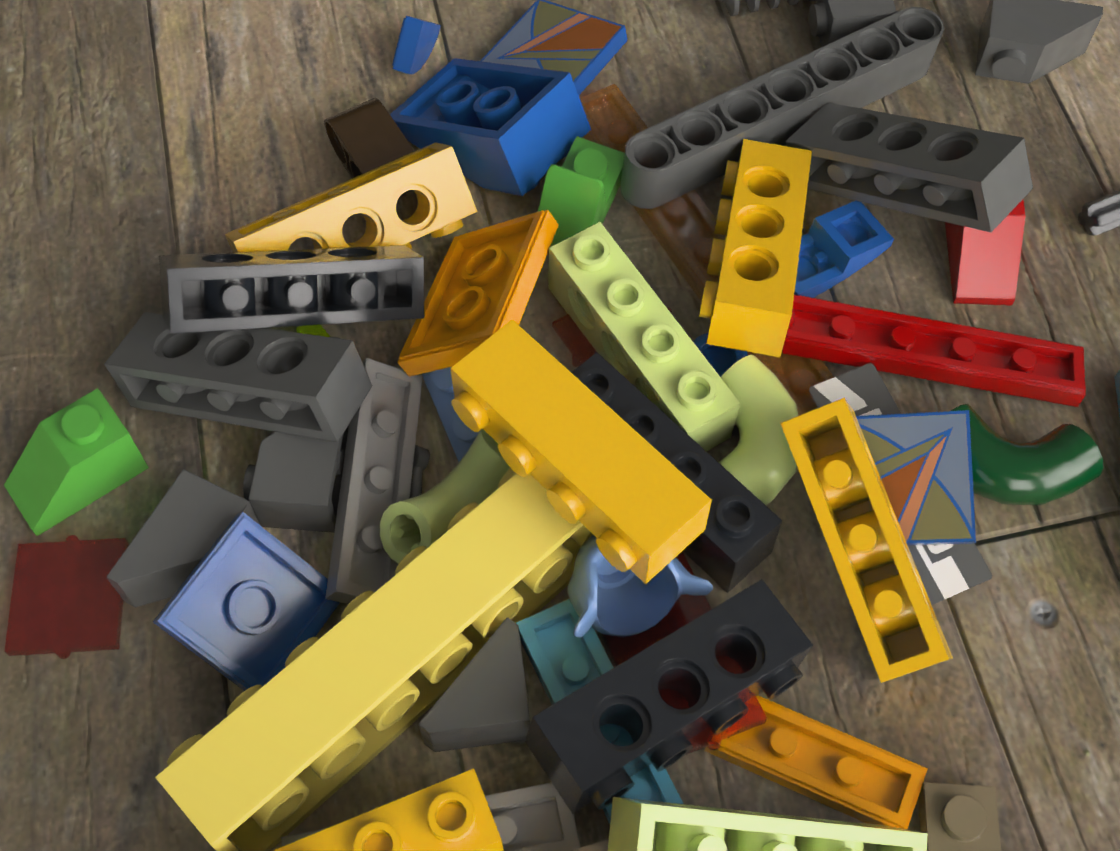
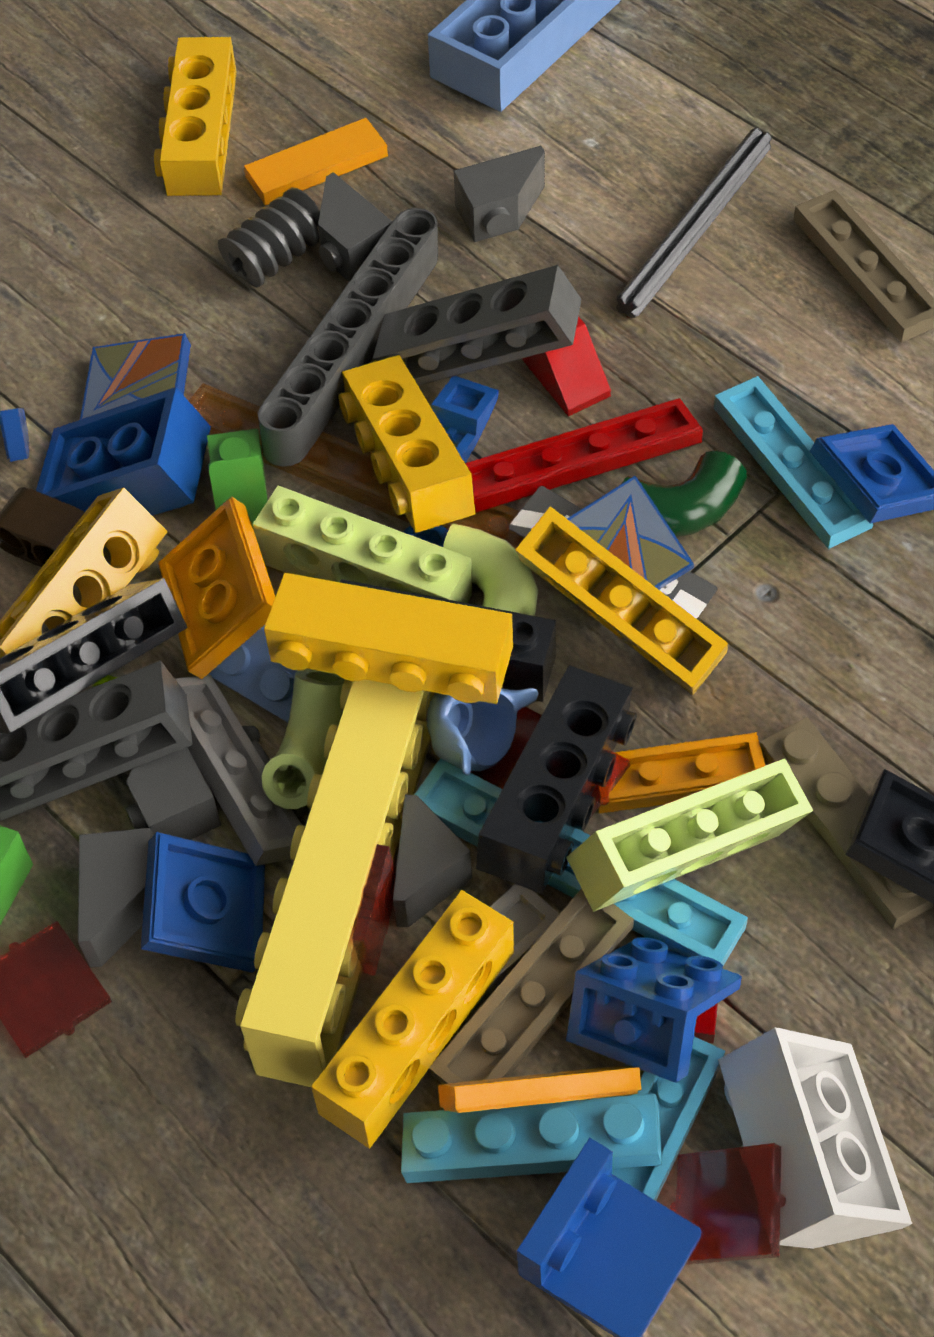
camera: 30 degrees left, 5 degrees down
(390, 725) = (375, 910): none -> clear red piece

